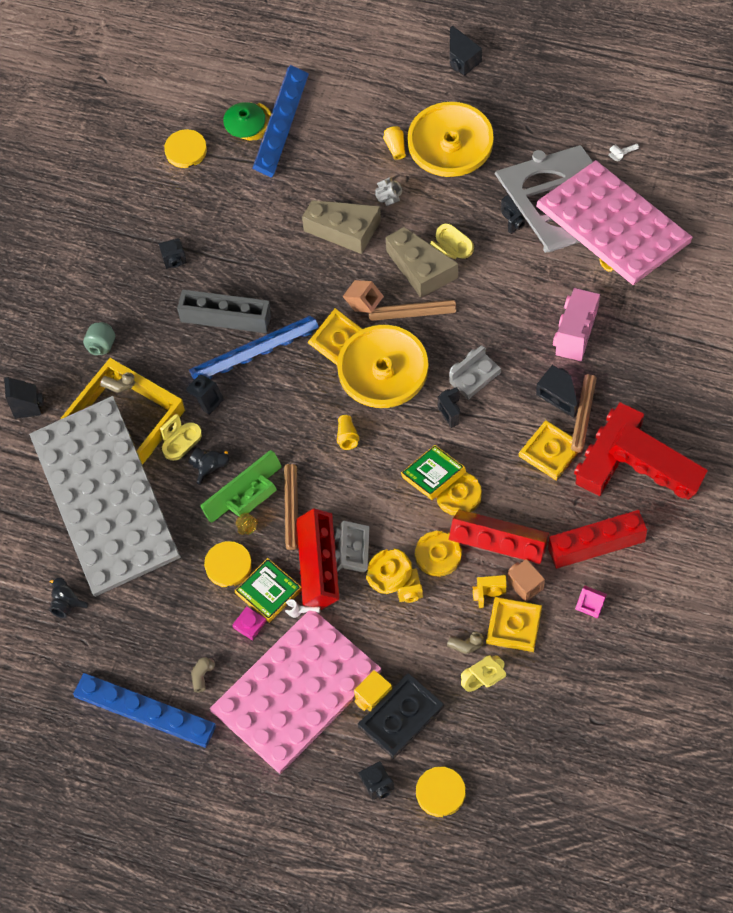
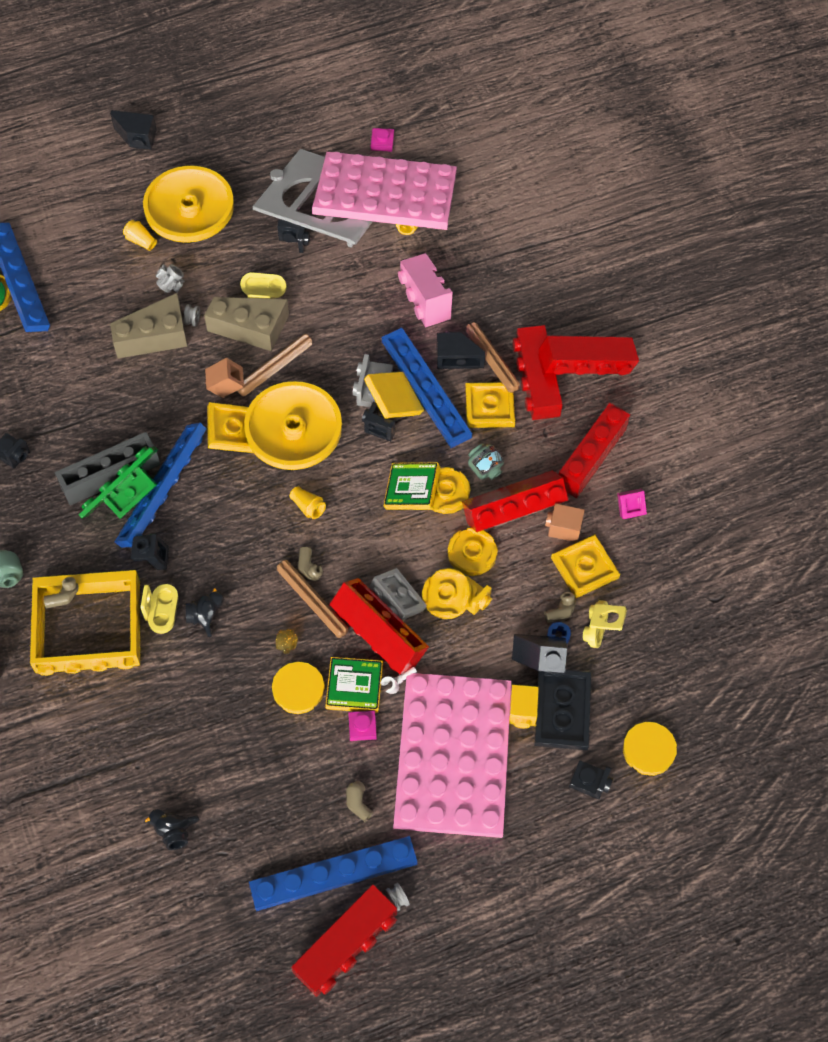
camera: 45 degrees left, 0 degrees up
(104, 496) = (133, 705): light grey plate -> none
(111, 760) = (344, 941): none -> red brick
(170, 758) = (397, 896): none -> light grey bush
(224, 335) = (127, 489): none -> green bracket
(245, 490) = (261, 612): bright green bracket -> none
(307, 480) = (306, 567): none -> dark tan arm
(381, 231) = (191, 315): none -> light grey bush
(419, 663) = (540, 652): none -> black slope
(447, 653) = (559, 626): none -> blue bush
(478, 392) = (393, 394): none -> yellow tile
(491, 586) = (541, 549): yellow bracket -> none
(505, 491) = (485, 461): none -> head
(511, 403) = (427, 388): none -> blue plate
(618, 153) = (337, 137): white hand -> none
(654, 177) = (382, 139): none -> dark pink plate

